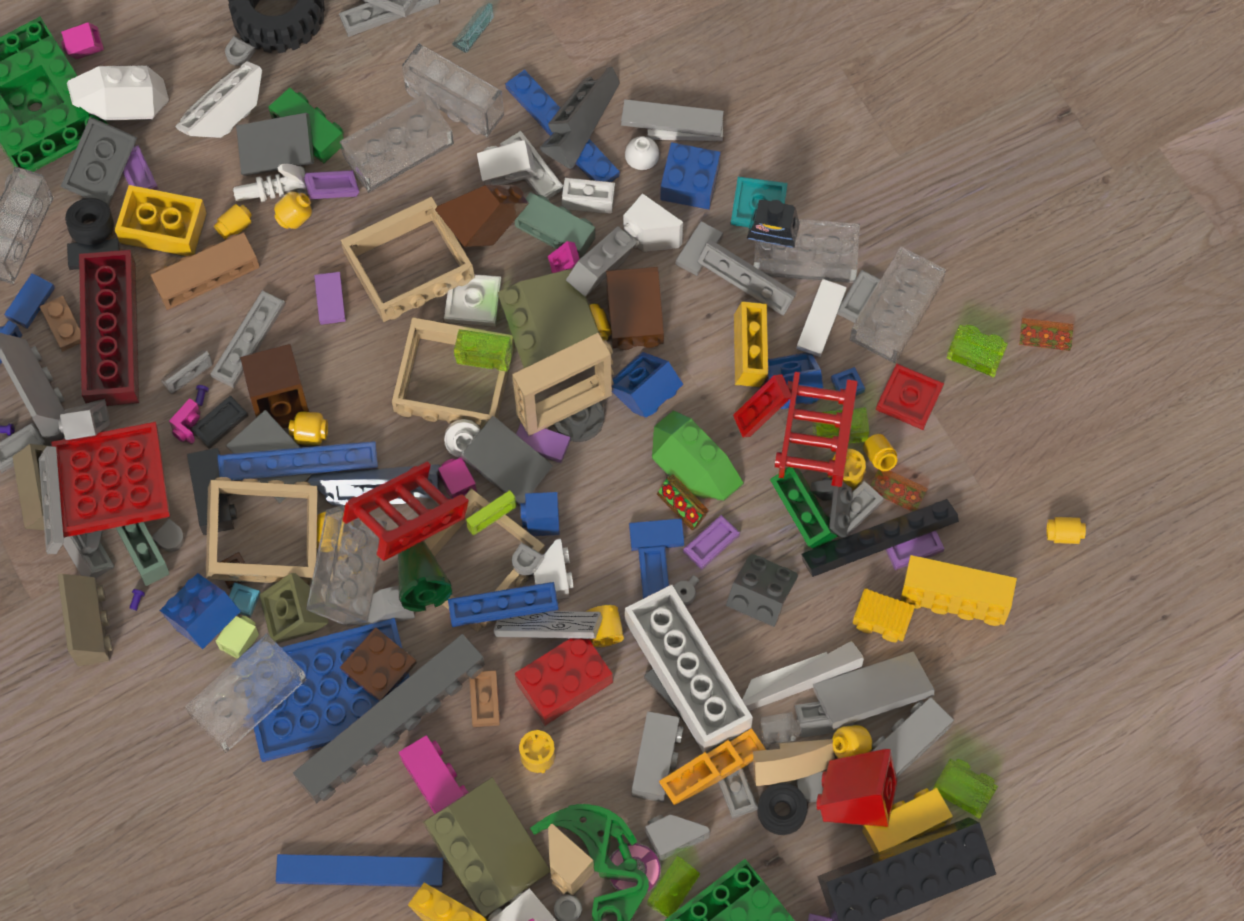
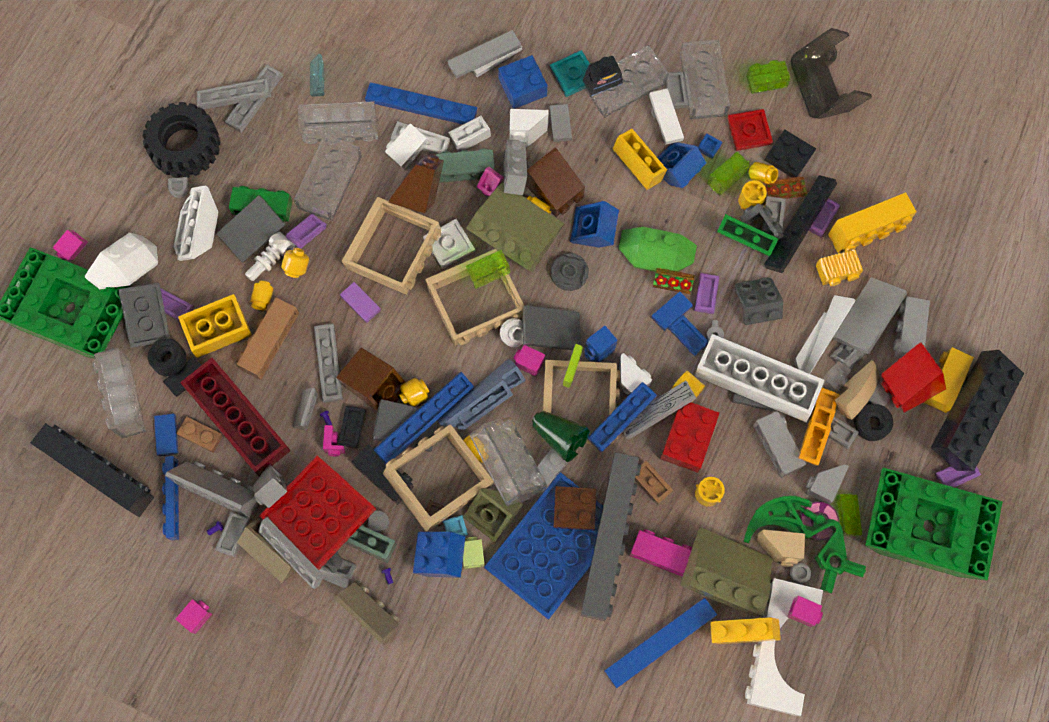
camera: 40 degrees left, 5 degrees up
(246, 693) = (510, 585): clear brick -> none
(409, 531) = (539, 411): red fence -> none
(526, 560) = (614, 380): light grey tile -> none
(546, 443) = (562, 300): medium lavender tile -> none
(557, 369) = (558, 255): tan window -> none
(579, 117) = (428, 90): dark grey wedge -> none
(642, 153) = (481, 87): white brick -> none
(746, 277) = (604, 120): light grey tile -> none
(762, 405) = (679, 190): red plate -> none
(837, 444) = (735, 166): red fence -> none
(851, 741) = (883, 354): yellow head -> none
(934, 454) = (790, 154): none -> black plate
(966, 787) = (963, 335): clear neon green brick -> none
(1034, 391) = (815, 80): none -> clear smoke windscreen
(1046, 334) = (794, 42): clear orange tile -> none
(1065, 530) = (898, 148): yellow brick -> none

